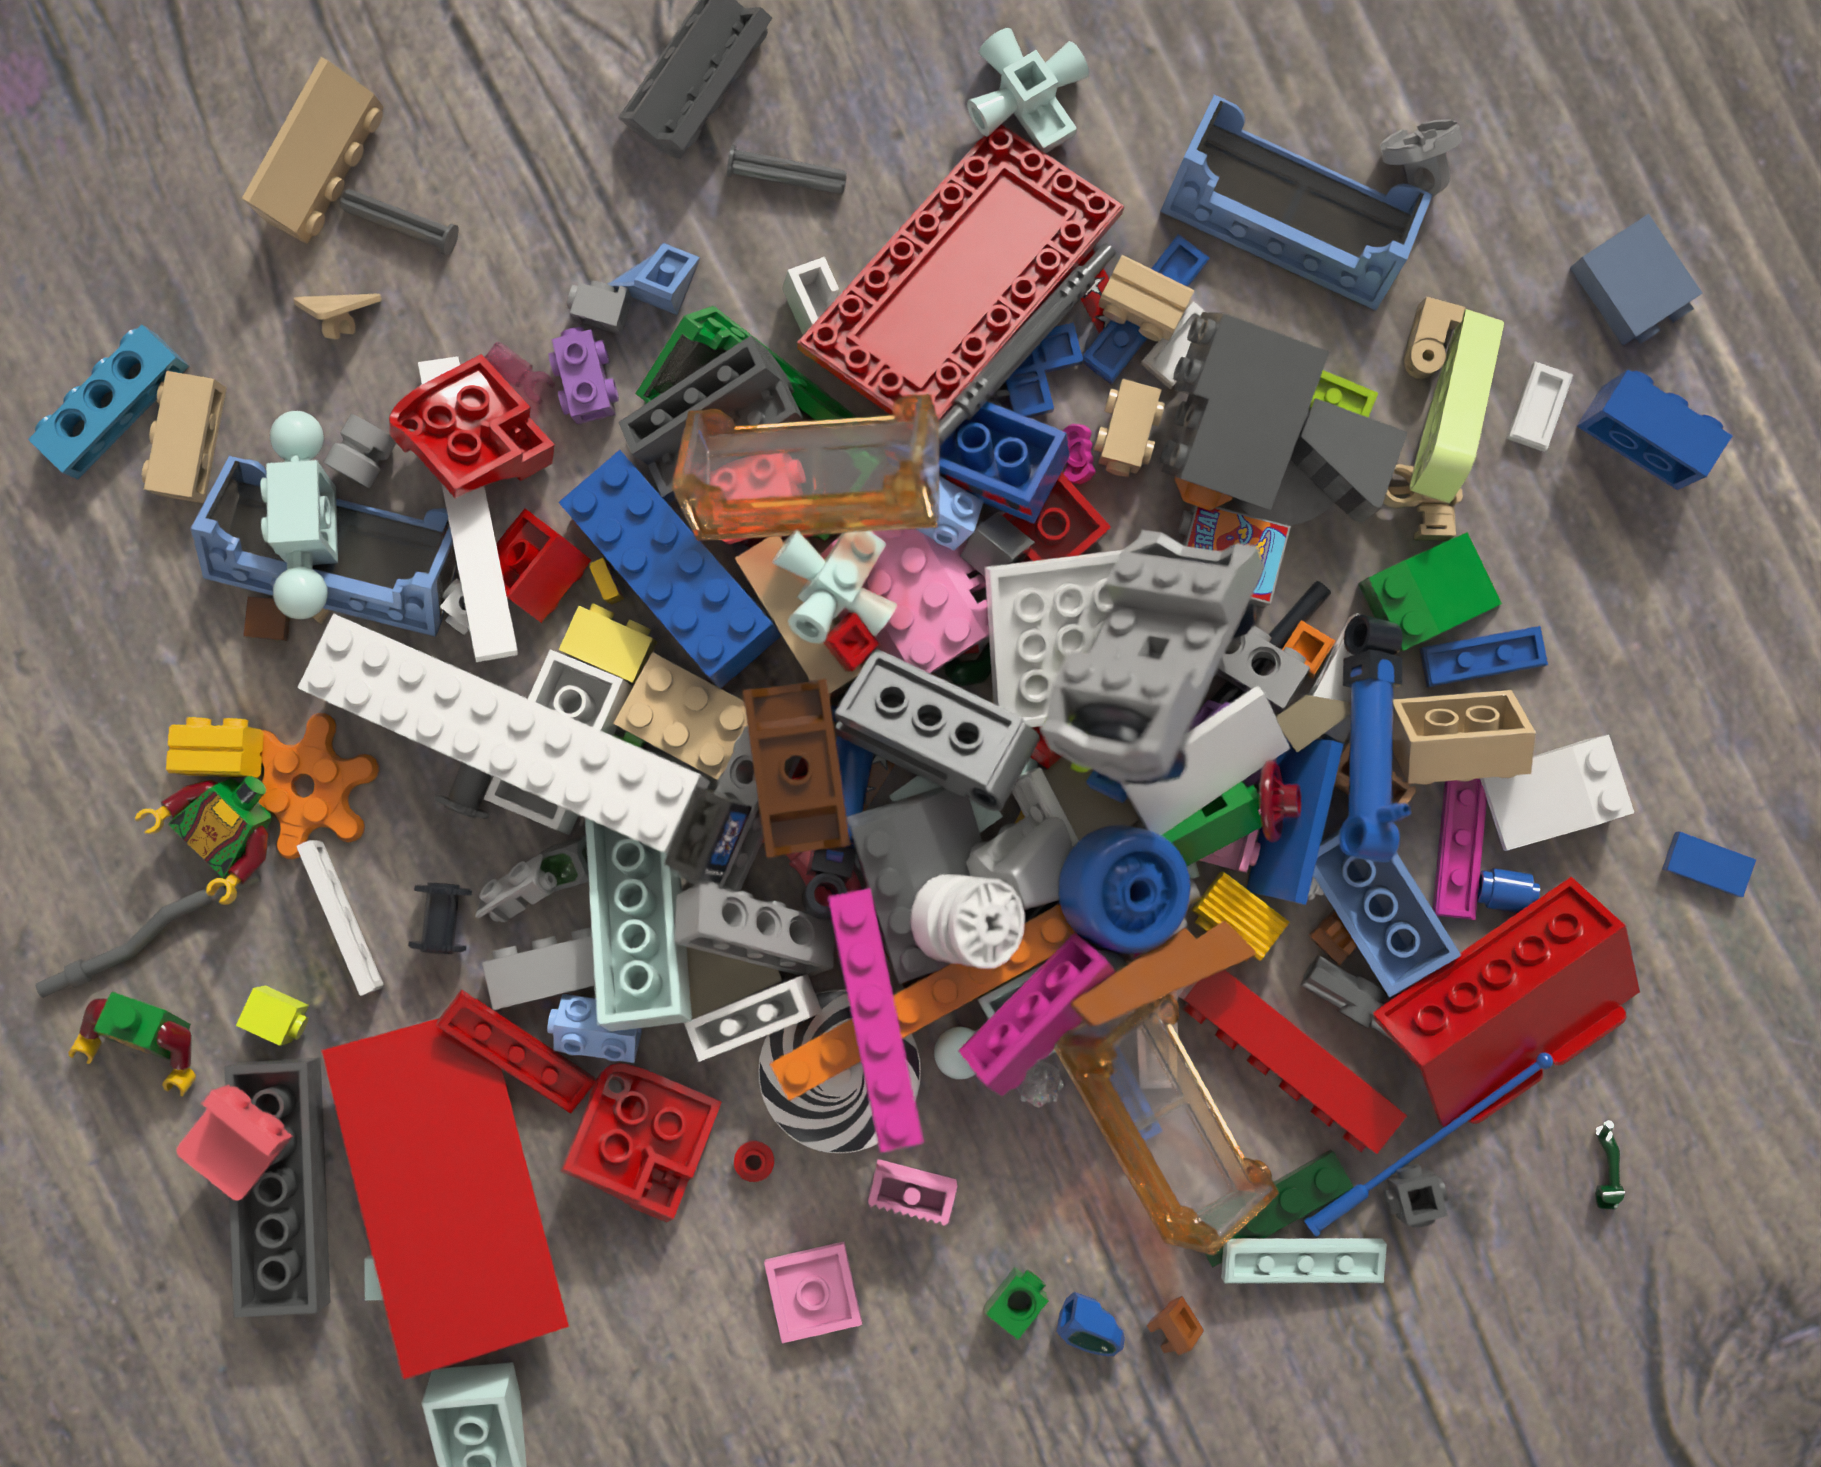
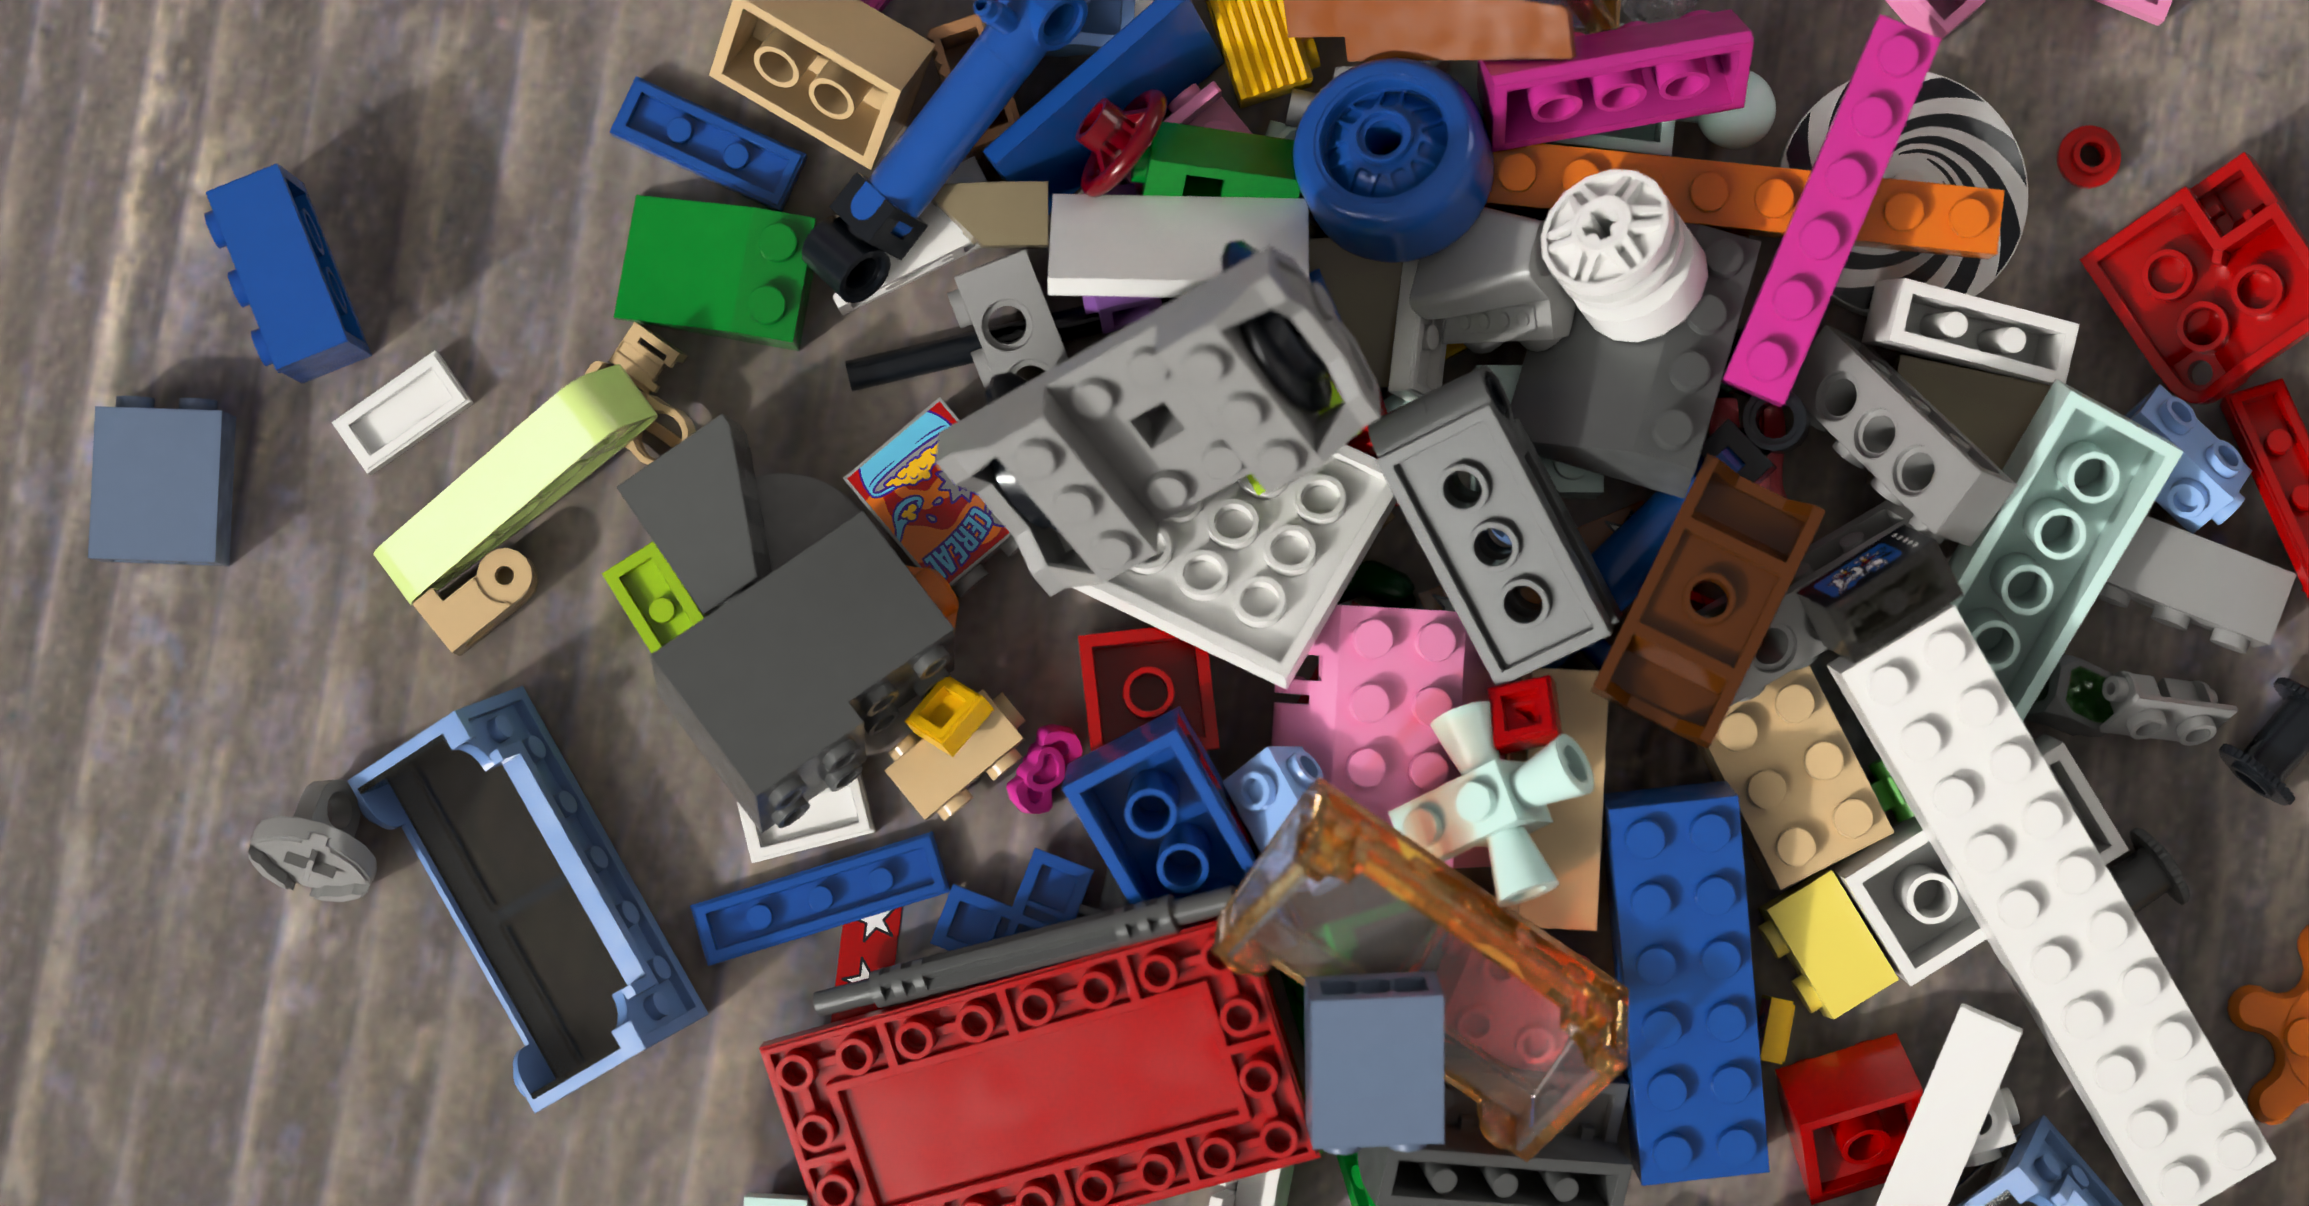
camera: 145 degrees left, 0 degrees up
(805, 403) = (1374, 1061): none -> sand blue brick
(996, 544) = (1244, 713): dark grey brick -> none
(1144, 299) = (818, 904): tan brick -> none
(1148, 439) = (949, 715): none -> yellow tile
(1312, 645) = (926, 310): orange slope -> none

